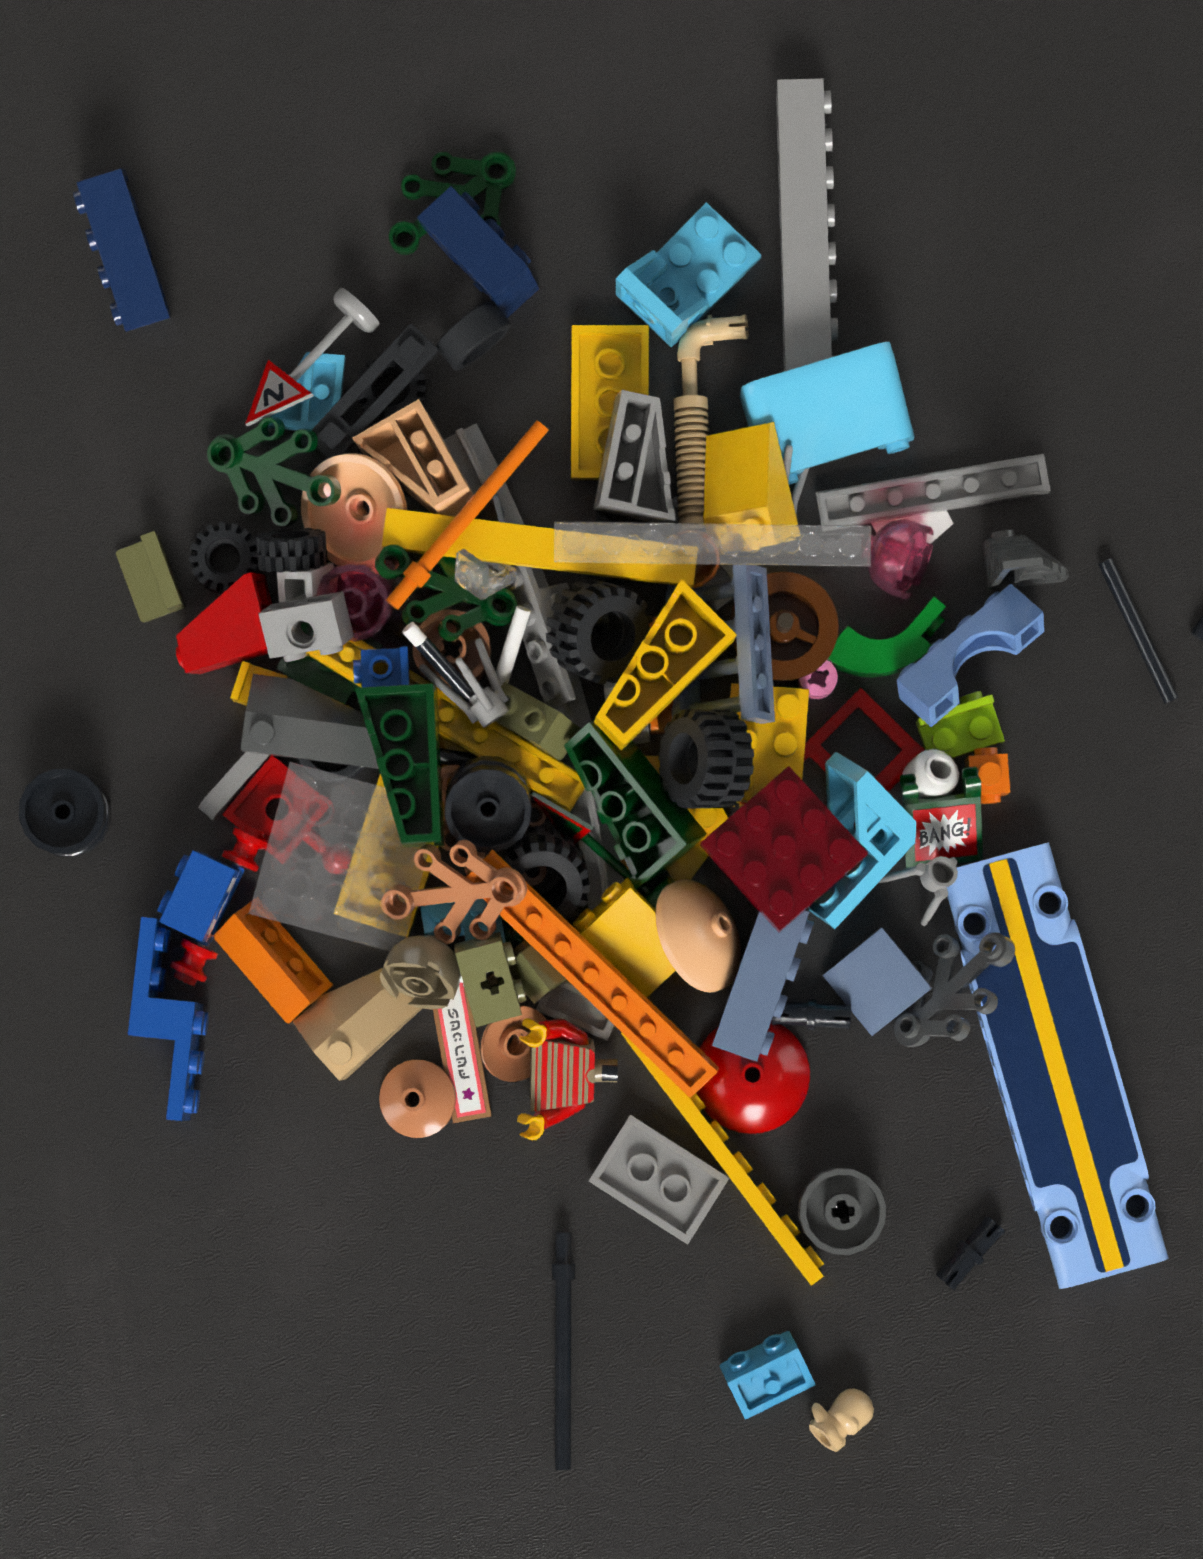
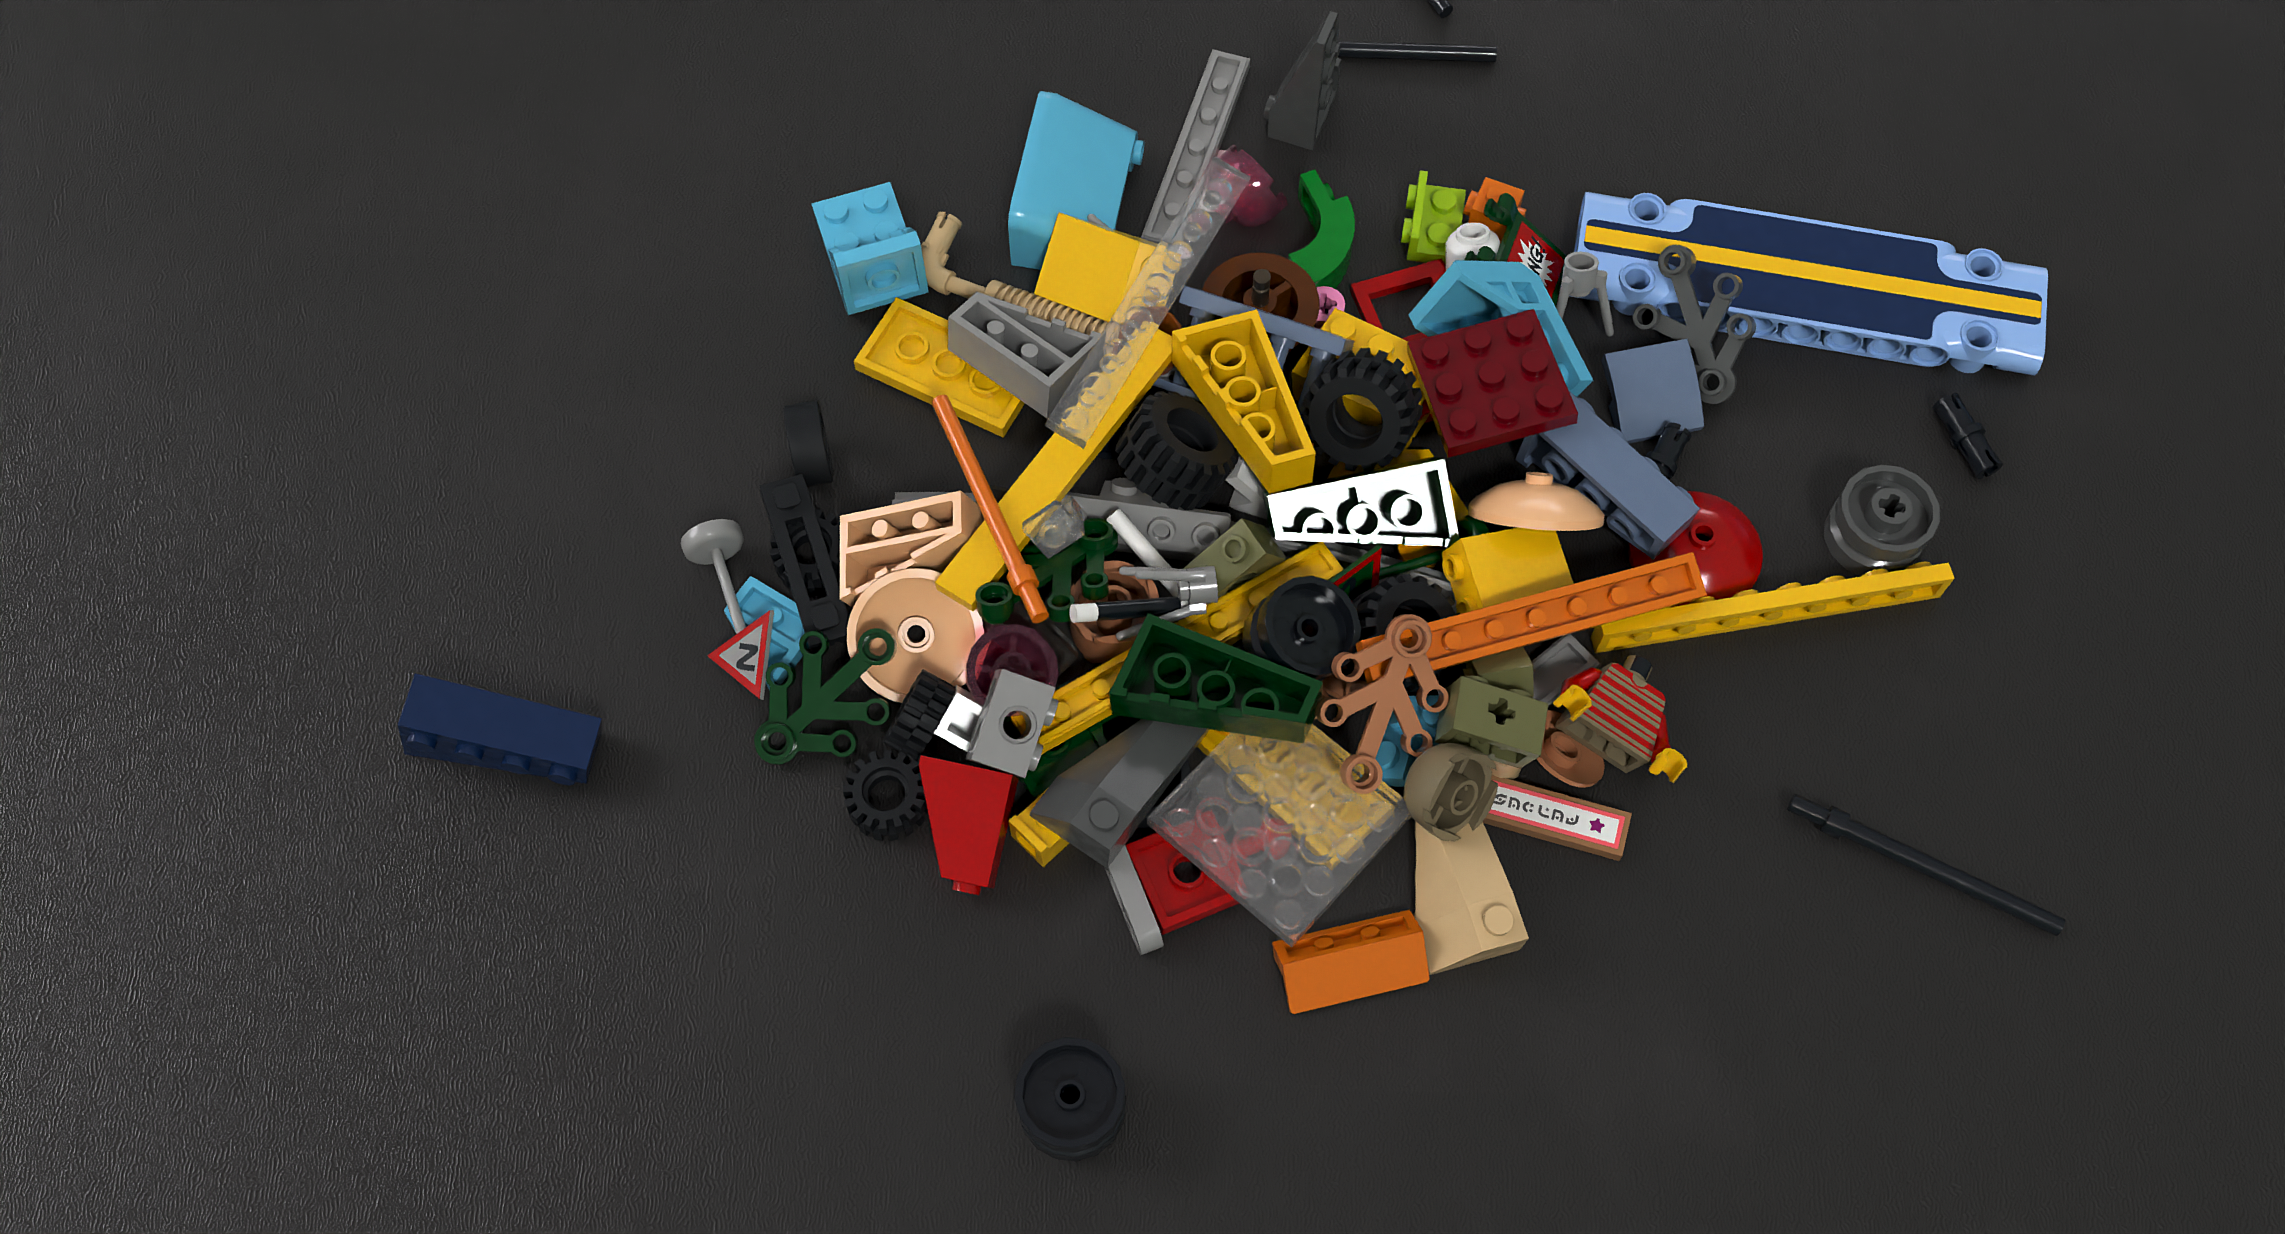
camera: 65 degrees left, 20 degrees down
(150, 578) = (861, 882): olive panel -> none
(167, 1019) = (1371, 1092): blue bracket -> none
(203, 897) = (1249, 988): blue brick -> none
(397, 664) = (1100, 654): blue brick -> none
(435, 1094) = (1557, 896): nougat dish -> none
(474, 187) = (664, 410): dark green plant -> none
(480, 250) = (725, 397): dark blue wedge -> none
(658, 1179) = (1772, 681): light grey plate -> none
(766, 1374) = (2027, 672): dark azure bracket -> none
(805, 221) = (882, 133): light grey brick -> none
(845, 1417) = (2107, 623): tan animal -> none
(1003, 624) = (1385, 200): medium blue arch -> none

